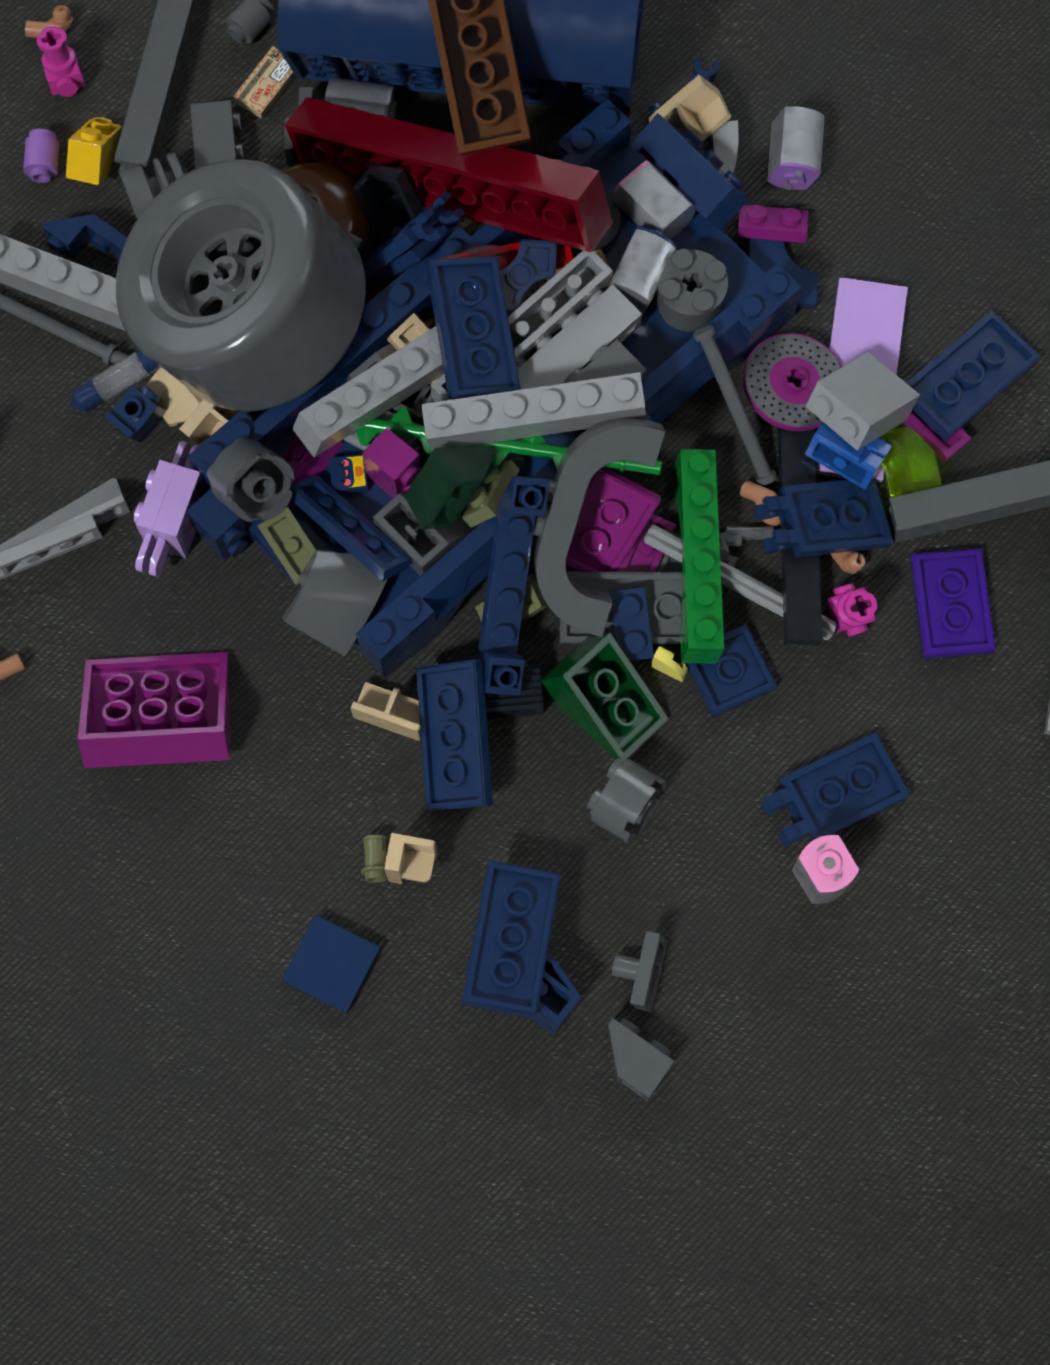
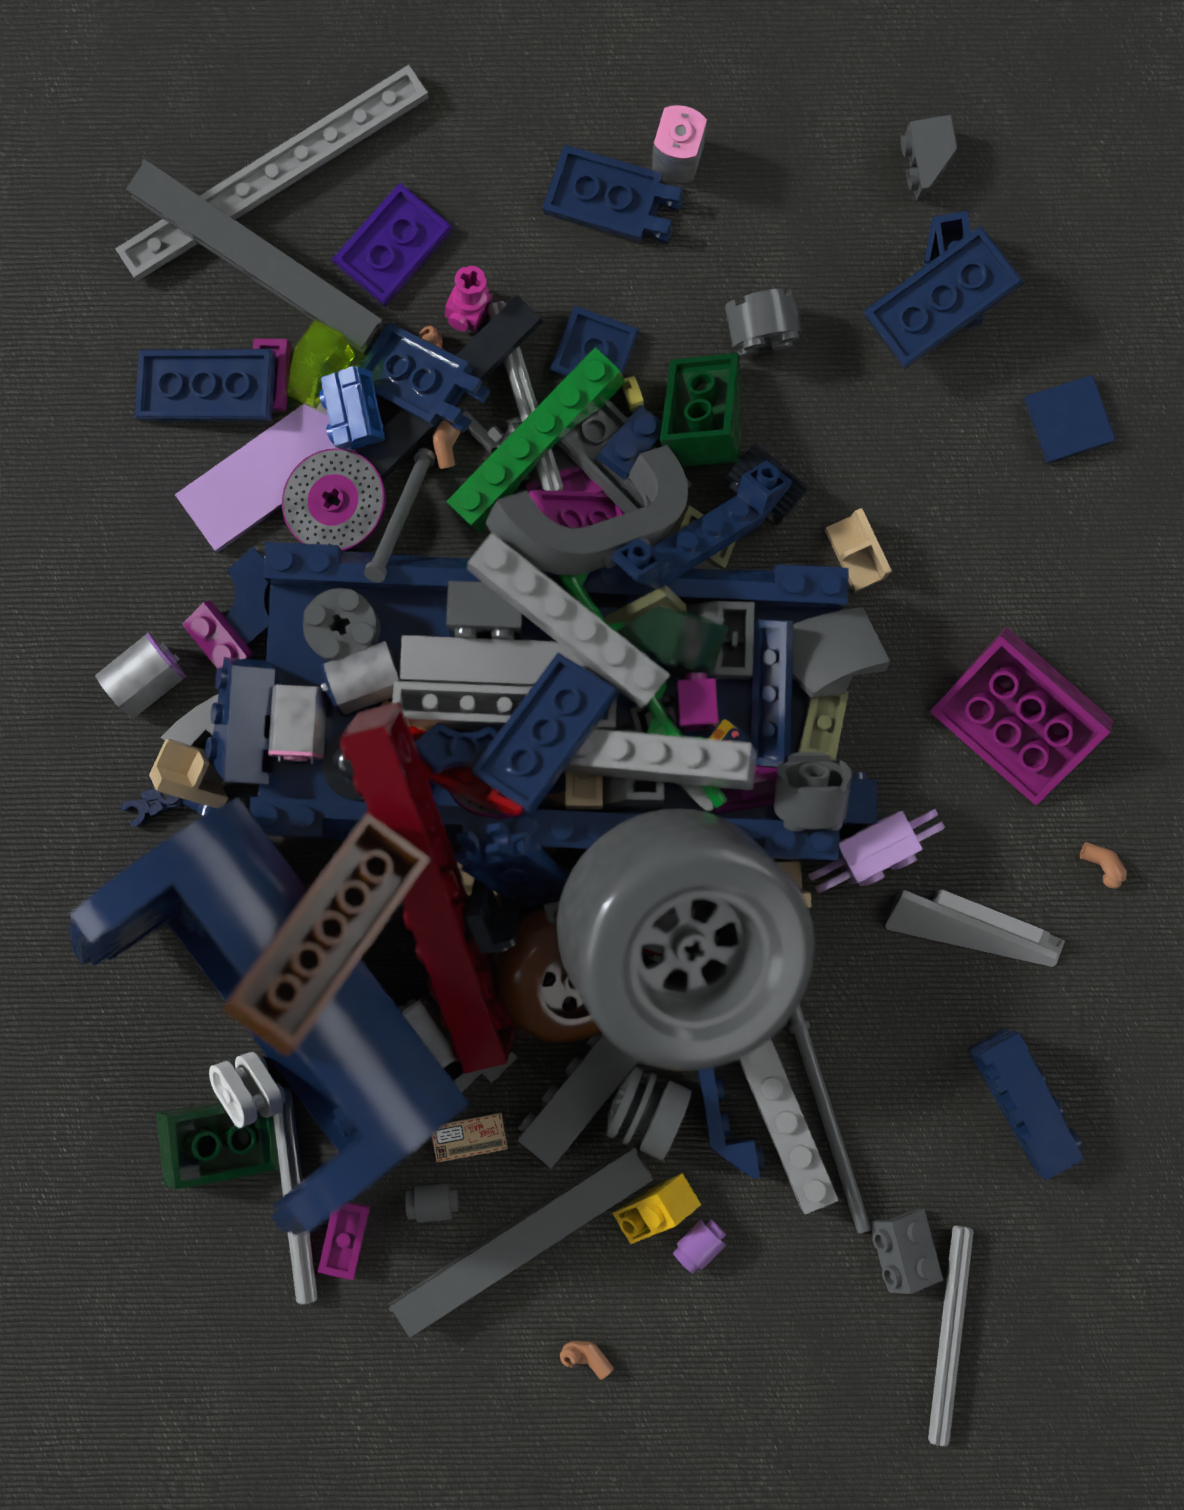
camera: 135 degrees left, 10 degrees up
(59, 62) = (615, 1307): dark pink connector -> none
(113, 381) = (832, 1003): clear piece -> none
(141, 423) = (841, 956): dark blue brick -> none
(375, 858) = (970, 459): olive pin -> none
(410, 859) = (952, 427): tan panel -> none
(454, 735) = (837, 481): dark blue tile -> none
(644, 971) = (866, 206): dark grey tile -> none
(862, 400) = (307, 426): light grey brick -> none

